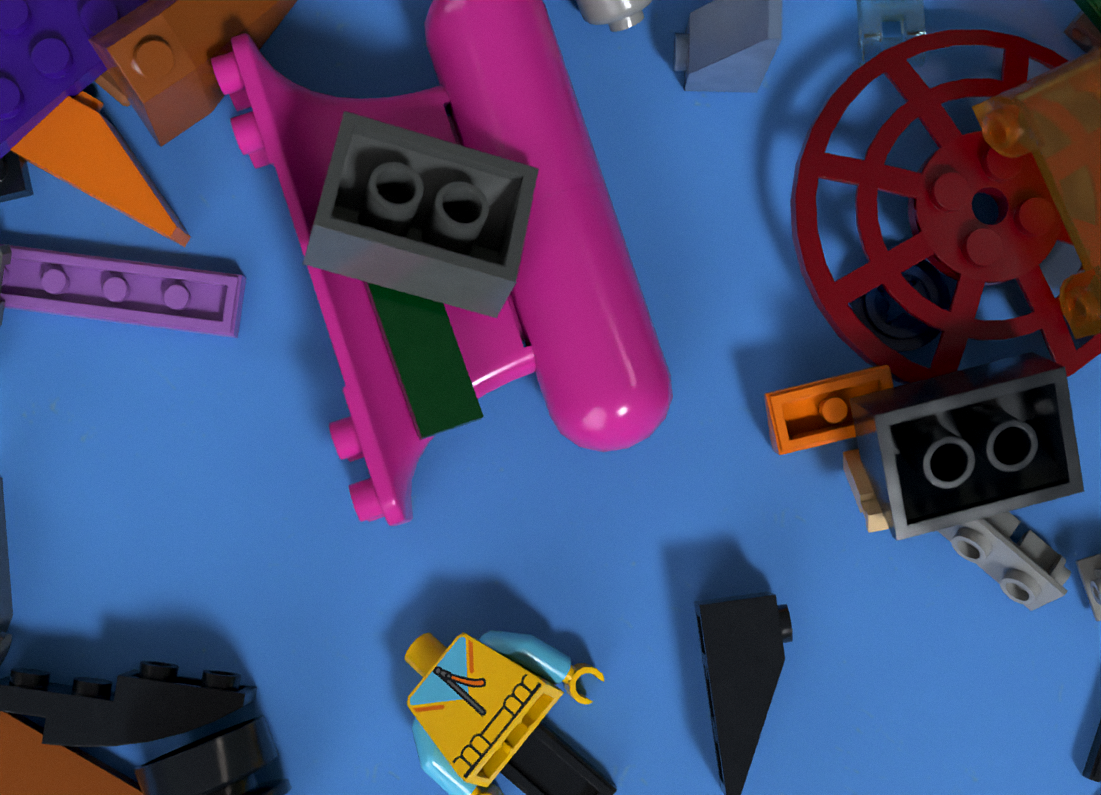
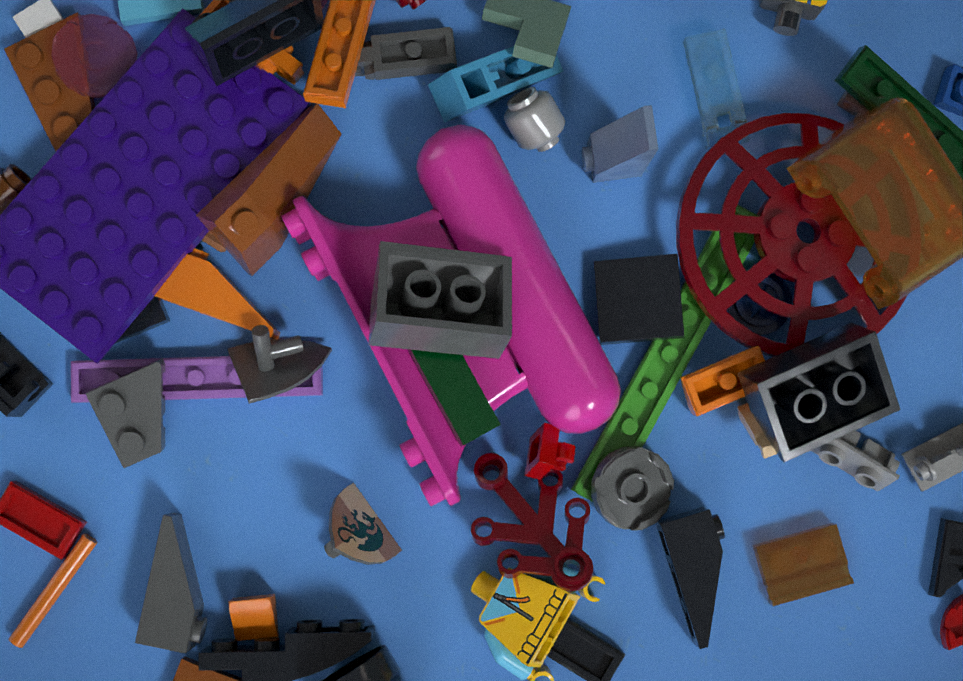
camera: 15 degrees left, 0 degrees up
(81, 644) = (254, 617): none -> orange slope
(171, 280) = (273, 365): none -> dark grey shield
(251, 542) = (358, 531): none -> shield
(512, 580) = (535, 528): none -> dark red plant
(549, 472) = (547, 453): none -> red tile
(667, 545) = (632, 488): none -> dark grey tile
(722, 270) = (639, 299): none -> black tile
(729, 390) = (662, 363): none -> bright green tile
(902, 700) = (803, 564): none -> clear orange plate

